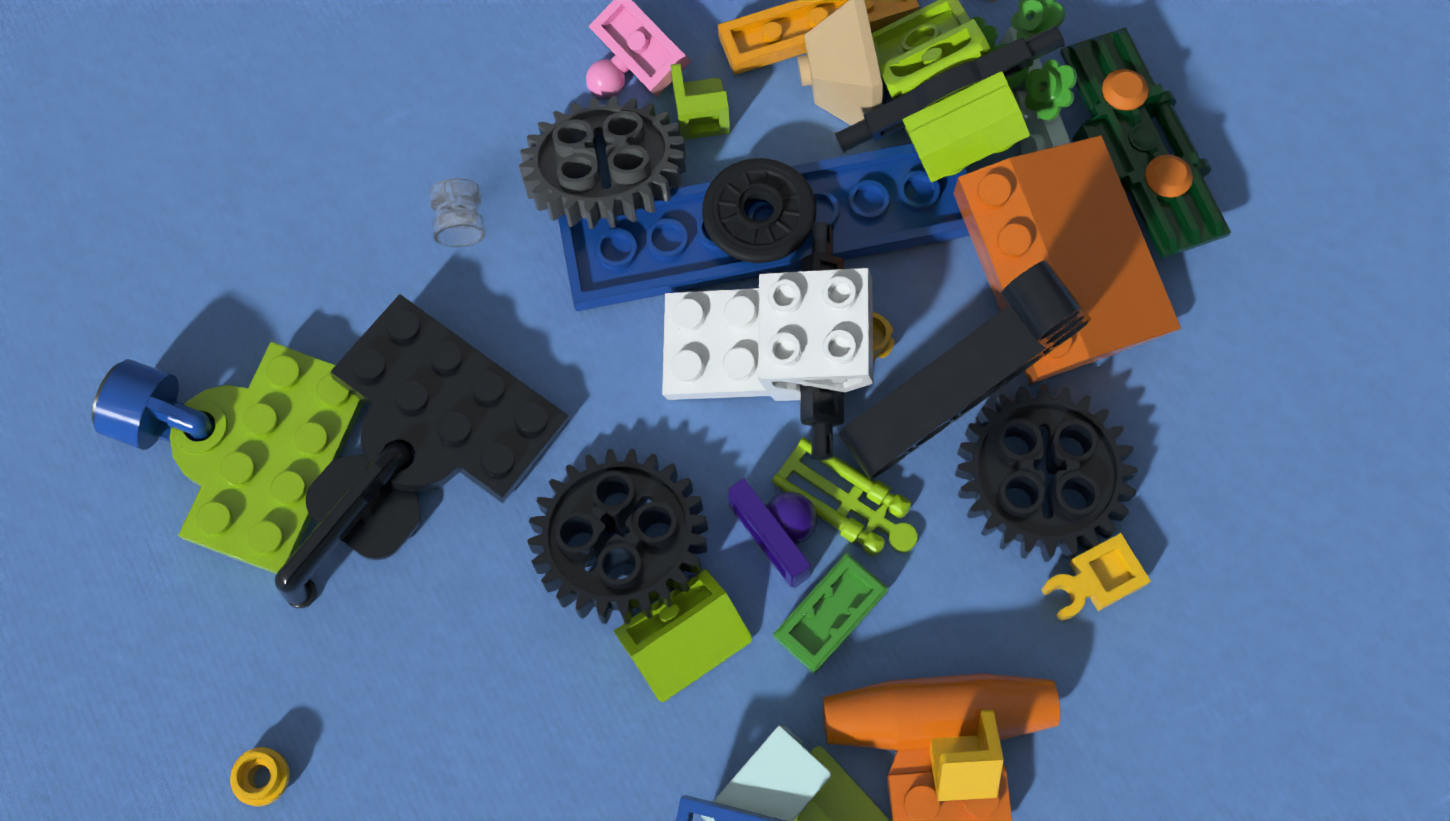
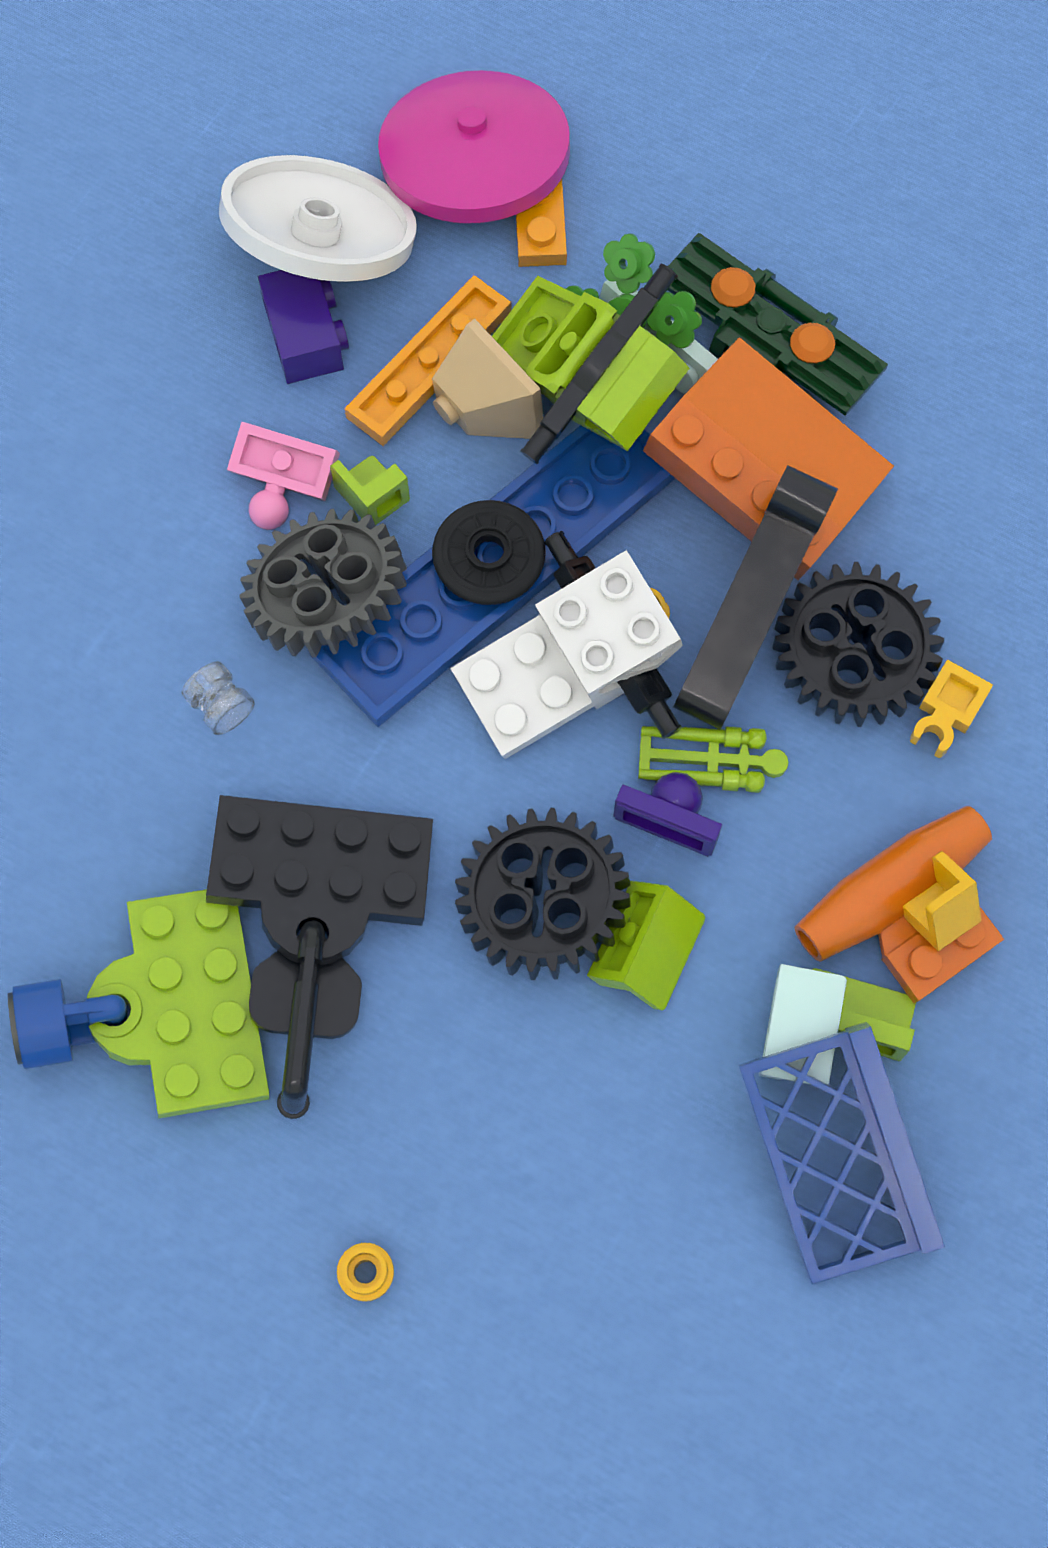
camera: 35 degrees left, 0 degrees up
(830, 613) = (757, 857): bright green plate -> none

